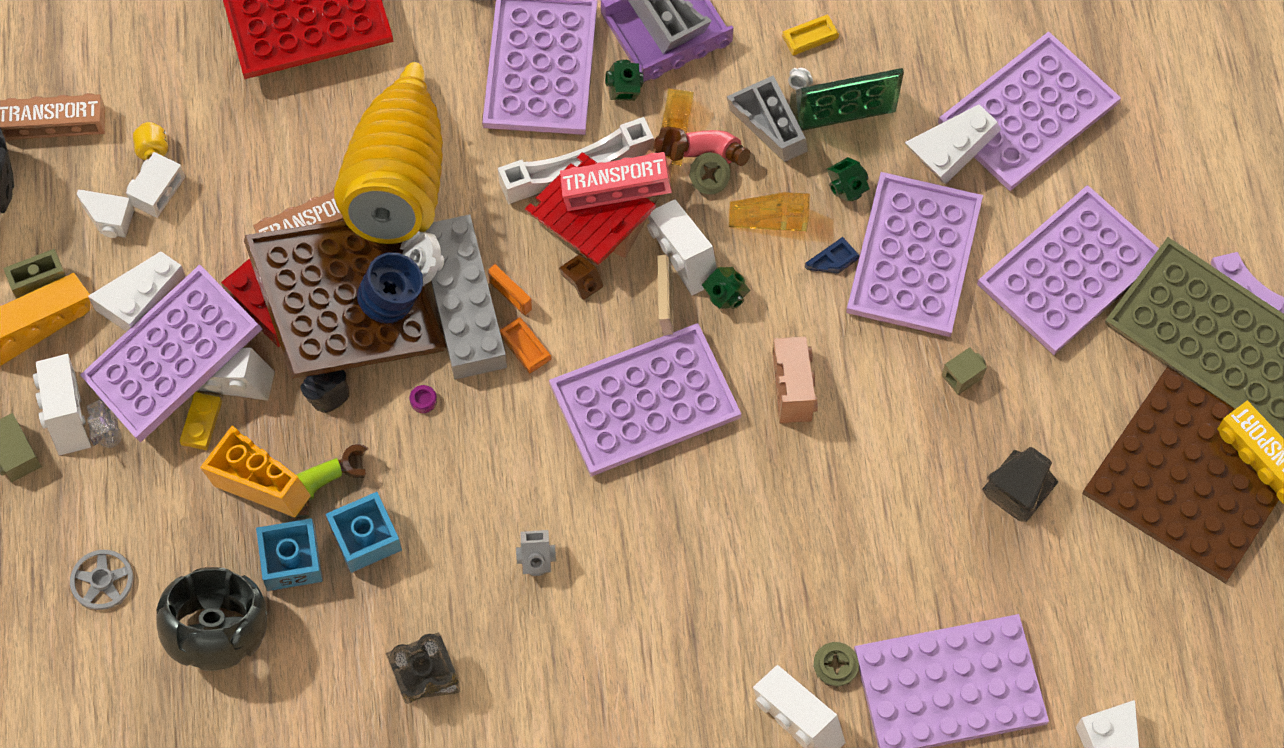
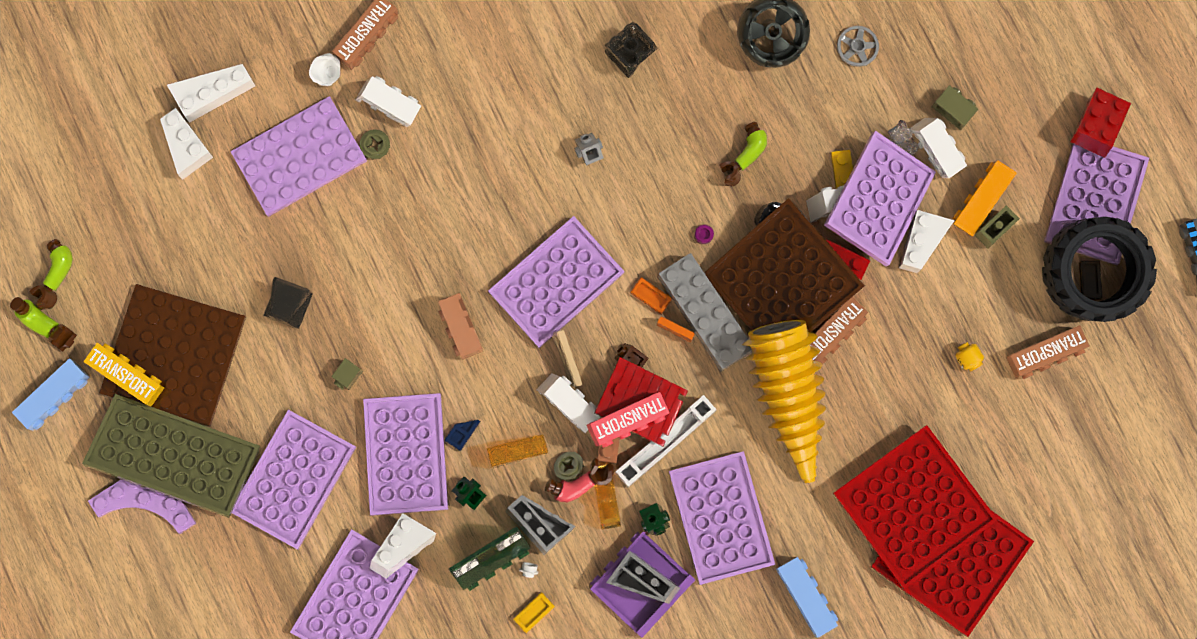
camera: 160 degrees right, 15 degrees up
(108, 212) = (973, 292): white slope -> none
(155, 184) = (951, 325): white brick -> none
(251, 473) = (791, 135): light orange wedge -> none
(289, 554) = (745, 94): dark azure brick -> none
(363, 532) = (704, 124): dark azure brick -> none
(390, 287) = (741, 287): dark blue wheel -> none
(425, 252) = (735, 316): white plate -> none
(726, 288) = (527, 378): dark green brick -> none

